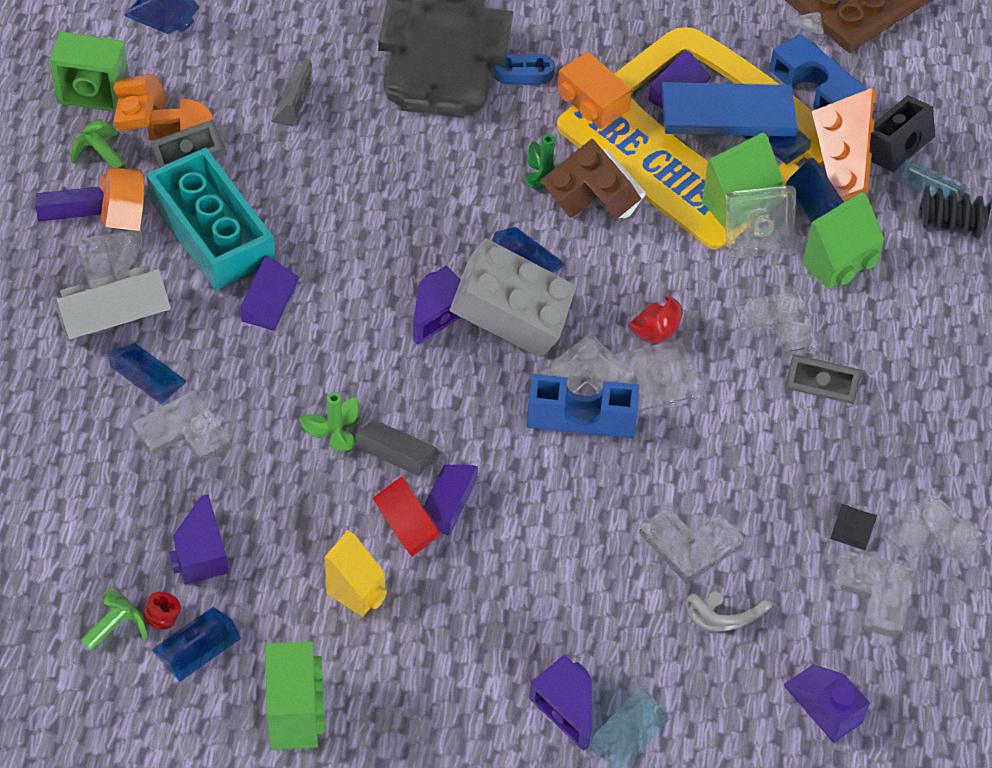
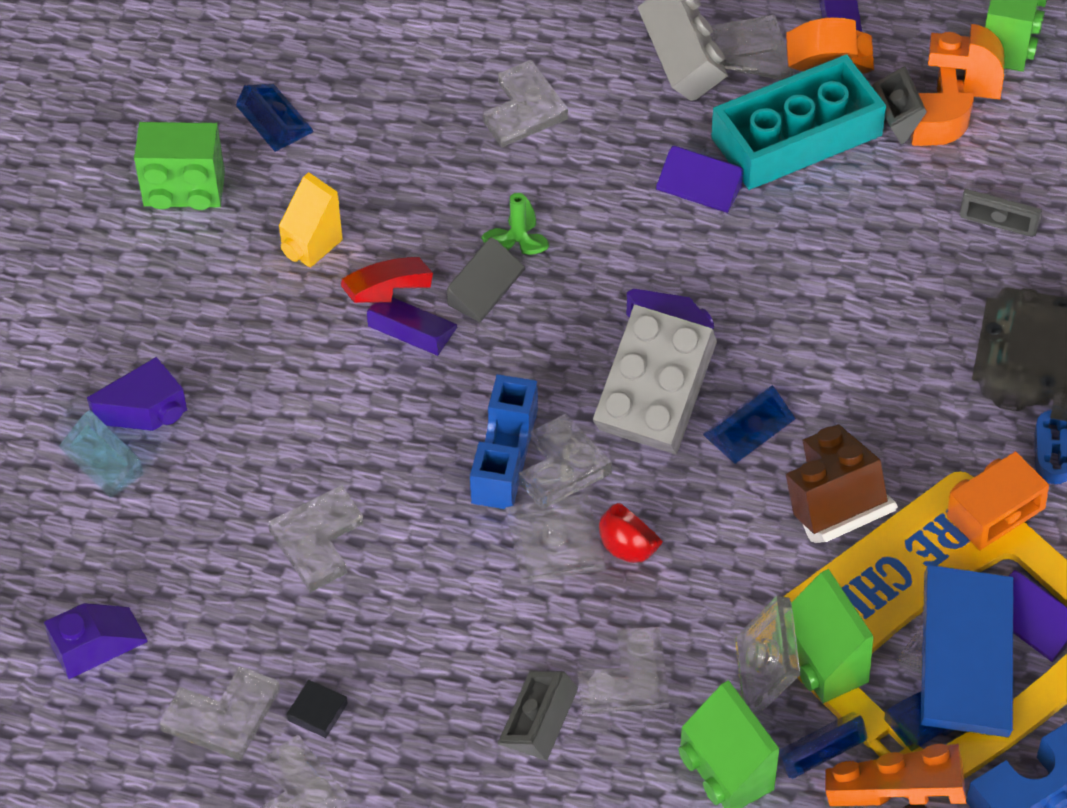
camera: 100 degrees right, 0 degrees up
(93, 136) = (924, 24): bright green plant -> none
(121, 611) = (307, 43): bright green plant -> none
(145, 372) = (603, 77): clear blue slope -> none
(161, 601) = (299, 78): red bush -> none
(198, 545) = (381, 112): dark purple slope -> none
(540, 158) = (890, 450): green plant -> none
(704, 613) = (220, 535): light grey piece -> none

